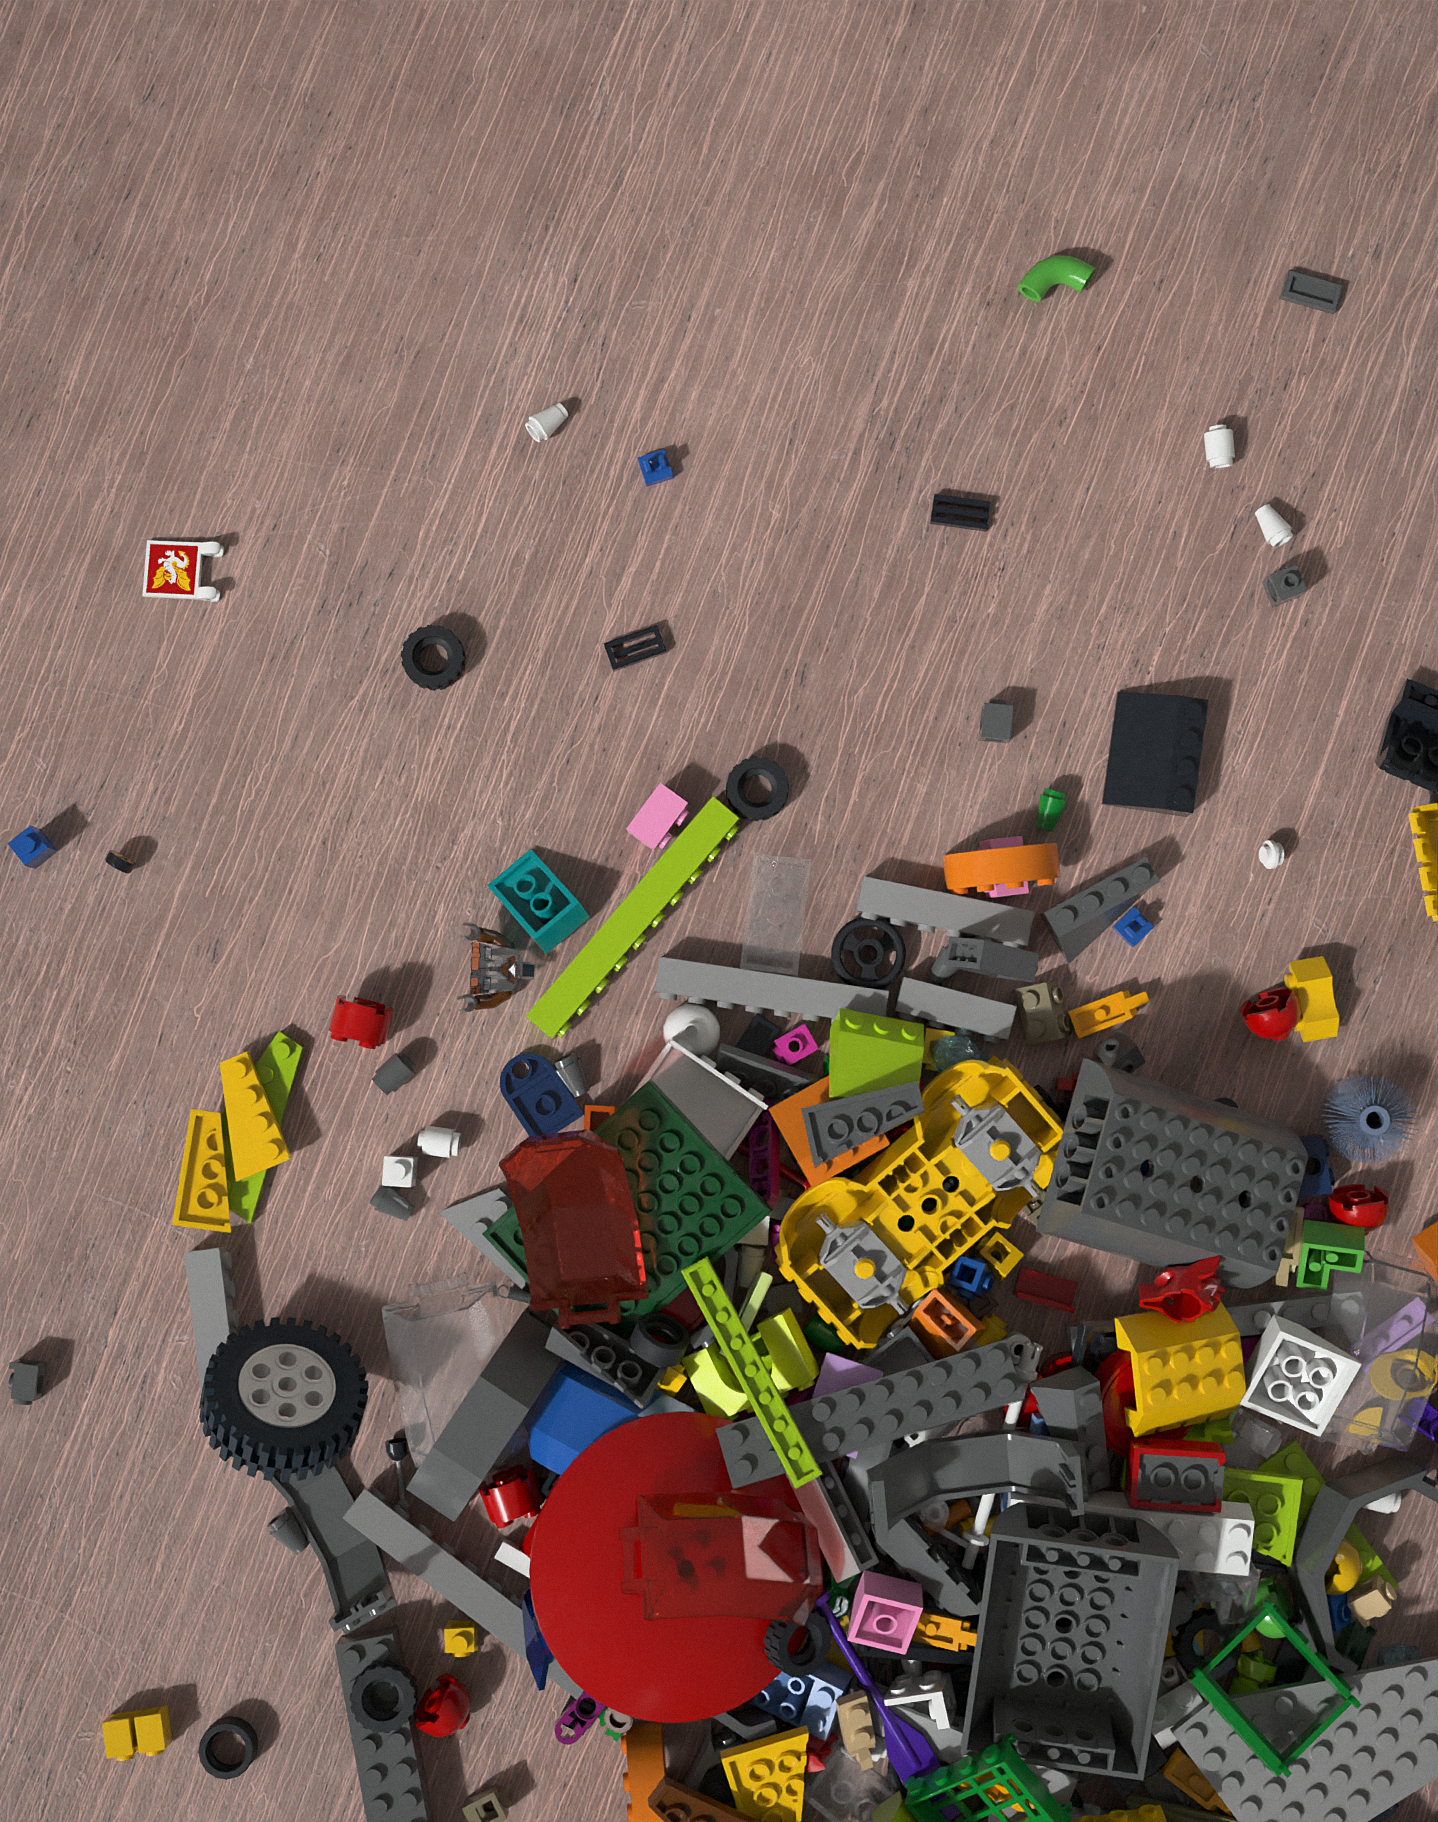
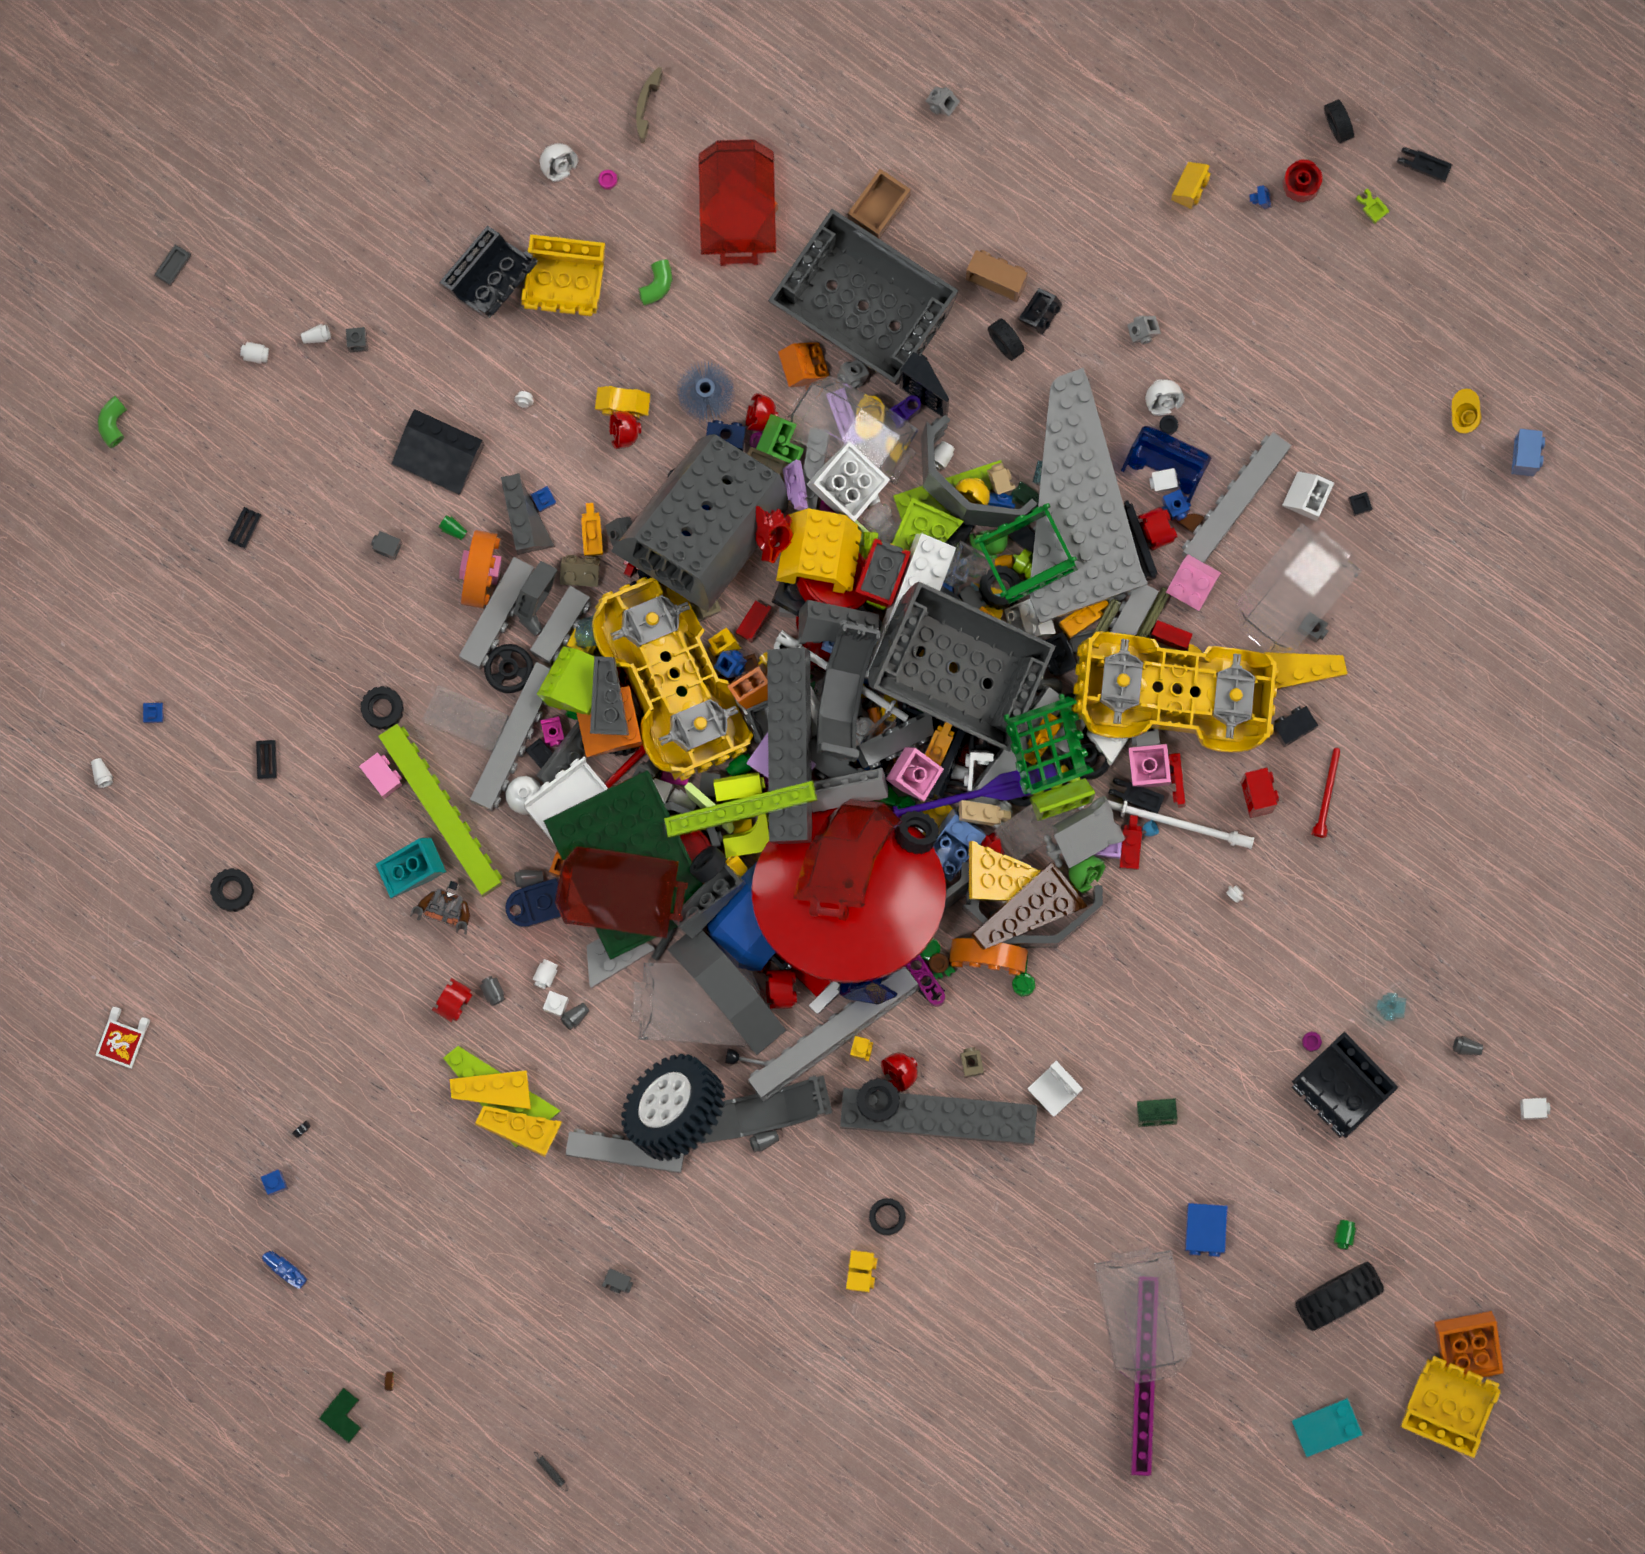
camera: 75 degrees left, 5 degrees down
(768, 1153) = (614, 766): magenta beam -> none
(1268, 1297) = (795, 485): none -> lavender hinge

